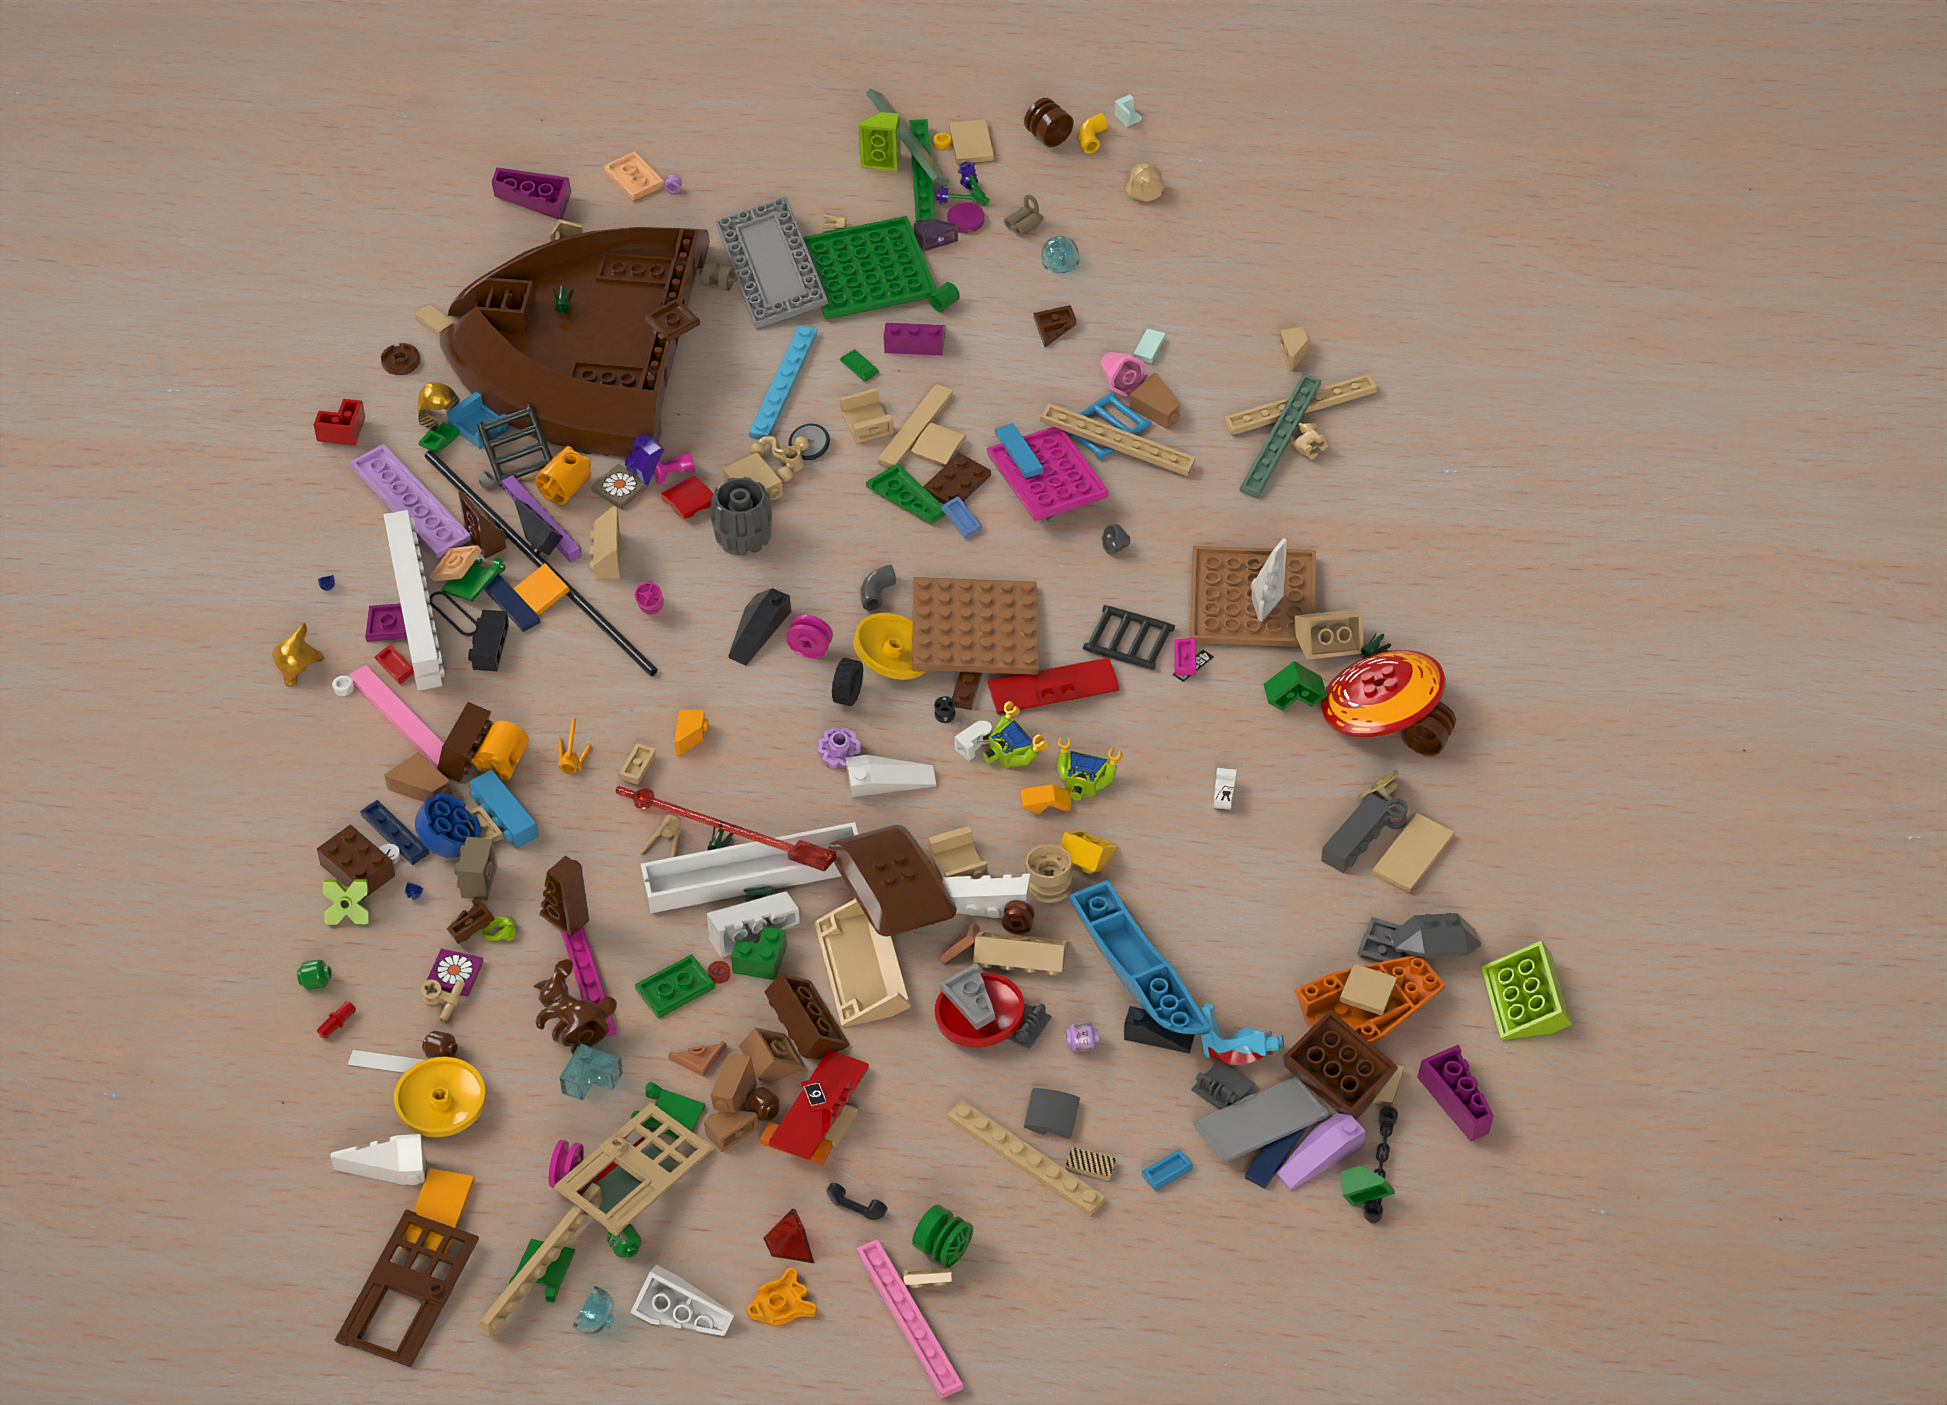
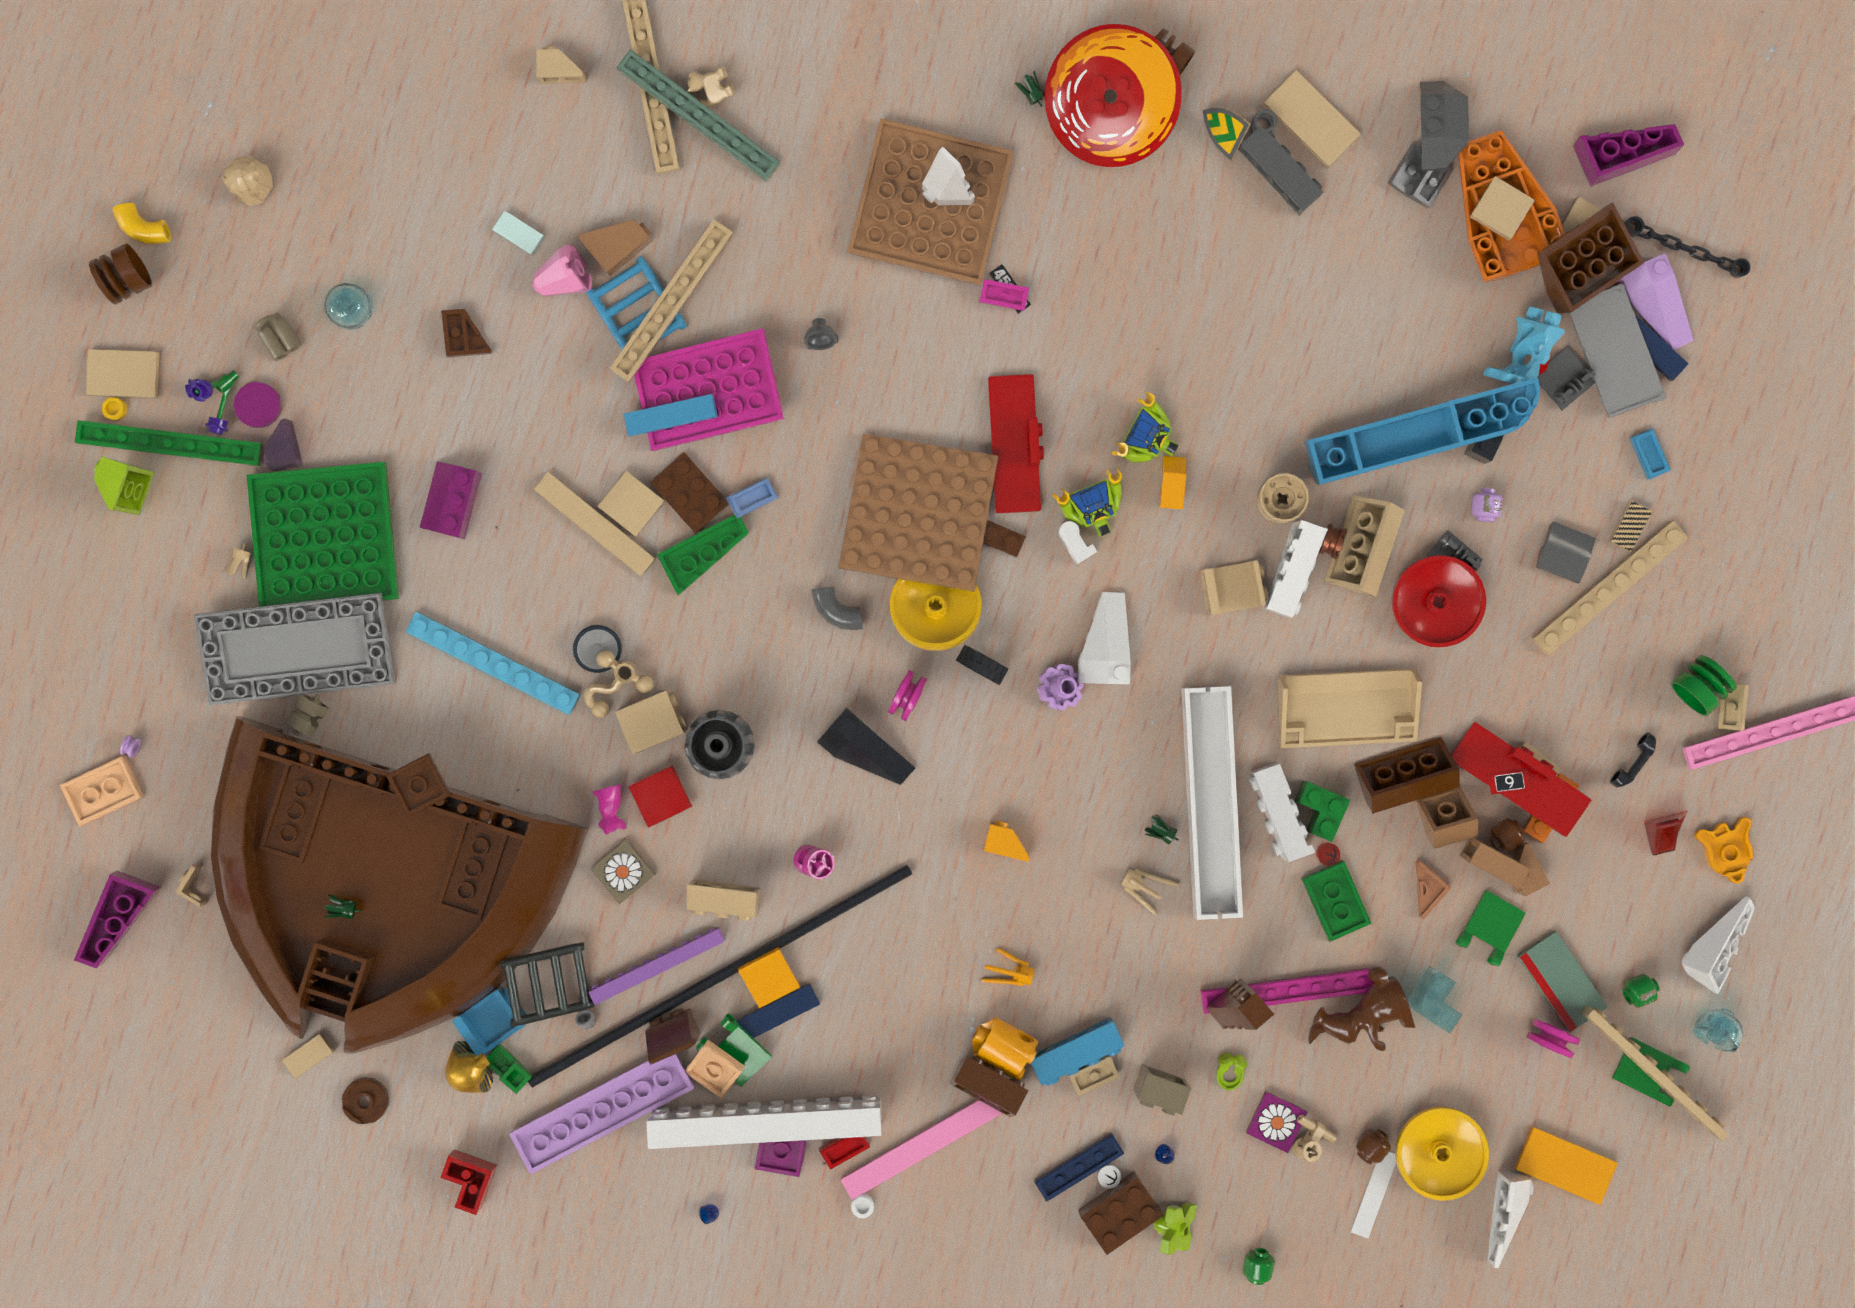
camera: 80 degrees left, 40 degrees up
(295, 655) = (823, 1262): pearl gold piece -> none
(336, 1019) = (1316, 1247): red axle -> none
(408, 1282) = (1646, 1201): reddish brown door -> none
(417, 779) = (1019, 1135): medium nougat slope -> none
(444, 826) = (1107, 1106): blue cylinder -> none
(447, 618) = (772, 1068): black piece -> none
(471, 922) = (1219, 1099): reddish brown wing -> none
(489, 640) = (833, 1043): black brick -> none
(536, 529) = (682, 974): black slope -> none
(563, 476) = (616, 942): light orange cylinder -> none
(637, 763) = (1039, 902): tan plate -> none
(644, 457) = (604, 840): dark purple slope -> none
(653, 1177) = (1565, 968): tan door -> none
(760, 893) = (1245, 797): dark green piece -> none
(801, 852) = (1227, 752): clear red bar -> none
(859, 365) = (481, 571): green tile -> none
(865, 416) = (570, 578): tan panel -> none
(893, 880) = (1271, 663): reddish brown wedge -> none
(910, 140) = (113, 449): sand green tile -> none
(944, 297) = (394, 455): green piece -> none
(944, 709) = (1030, 563): black wheel -> none
(960, 943) = (1342, 600): nougat tile -> none
(970, 996) = (1432, 608): light grey wing -> none
(1087, 850) = (1249, 453): yellow slope -> none
(1125, 111) = (110, 175): light aqua panel -> none
(1130, 657) = (930, 344): pearl dark grey bar -> none
(1224, 788) = (1197, 294): white leg -> none
(1294, 684) = (1079, 187): green brick -> none
(1330, 633) = (1011, 132): tan slope -> none
(1363, 1186) = (1718, 268): green slope -> none
(1526, 993) = (1516, 52): lime slope -> none

